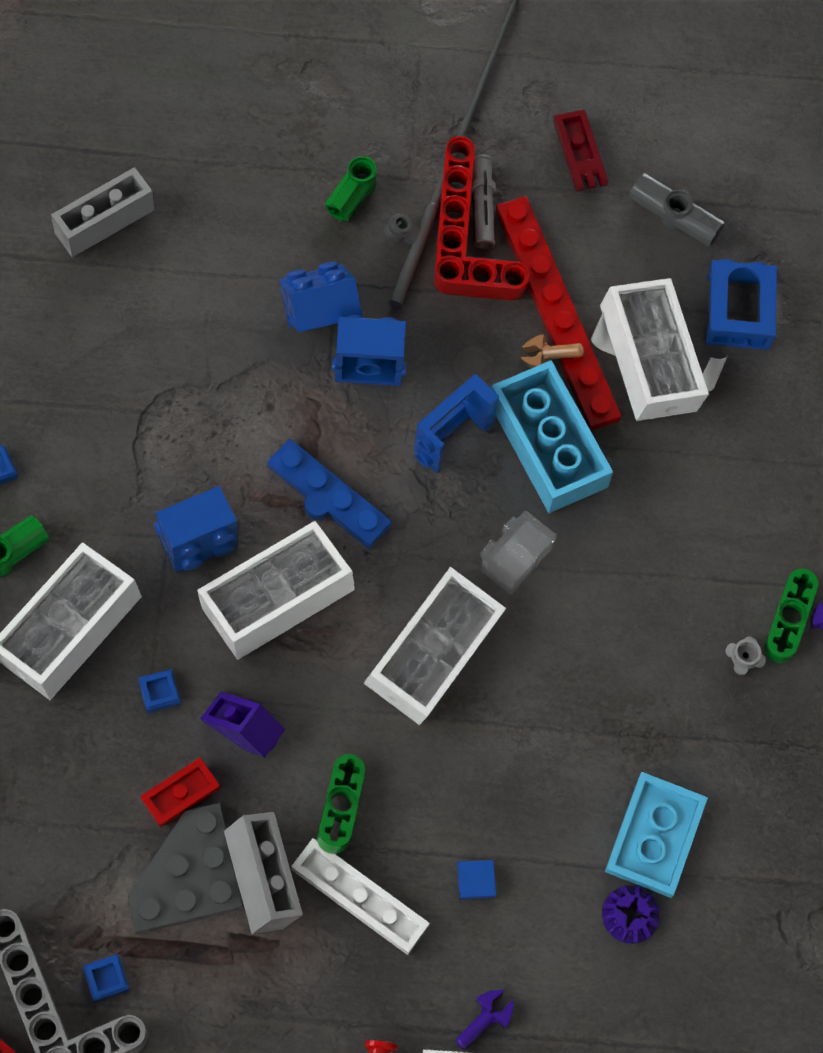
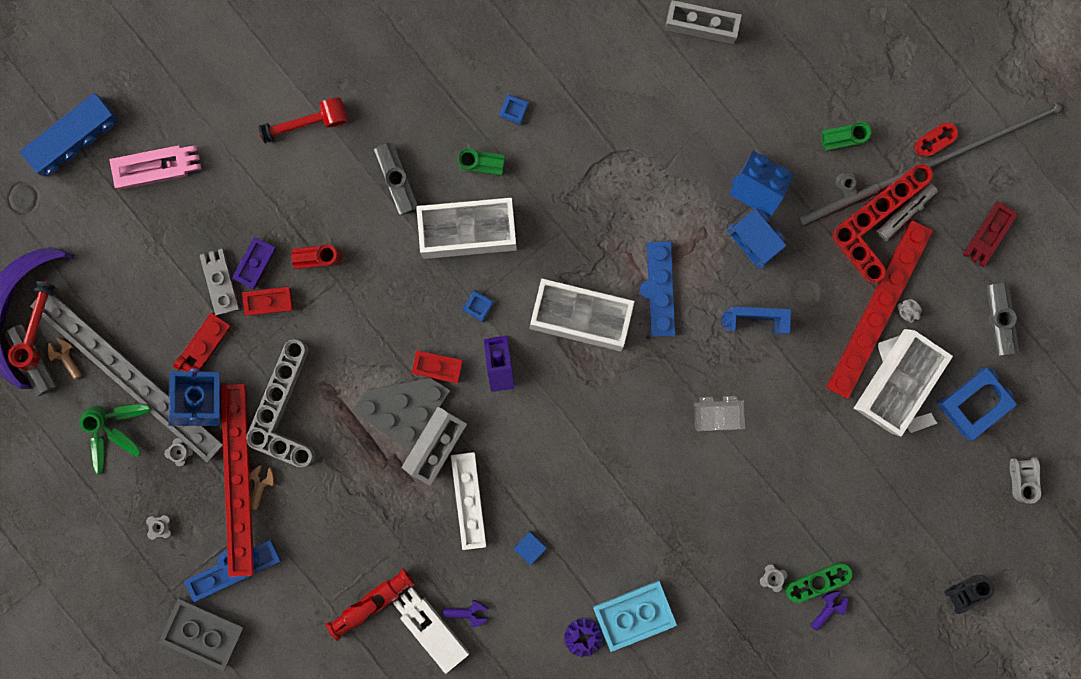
camera: 55 degrees right, 20 degrees up
(106, 978) = (319, 418): blue tile -> none
(197, 529) = (573, 247): blue brick -> none
(331, 814) = (506, 439): green beam -> none
(433, 117) = (939, 144): none -> red beam
(434, 646) = (627, 421): clear brick -> none
(548, 352) = (848, 328): medium nougat bar -> none
(551, 437) = (798, 374): medium azure brick -> none
(586, 283) = (909, 310): none -> light grey plate

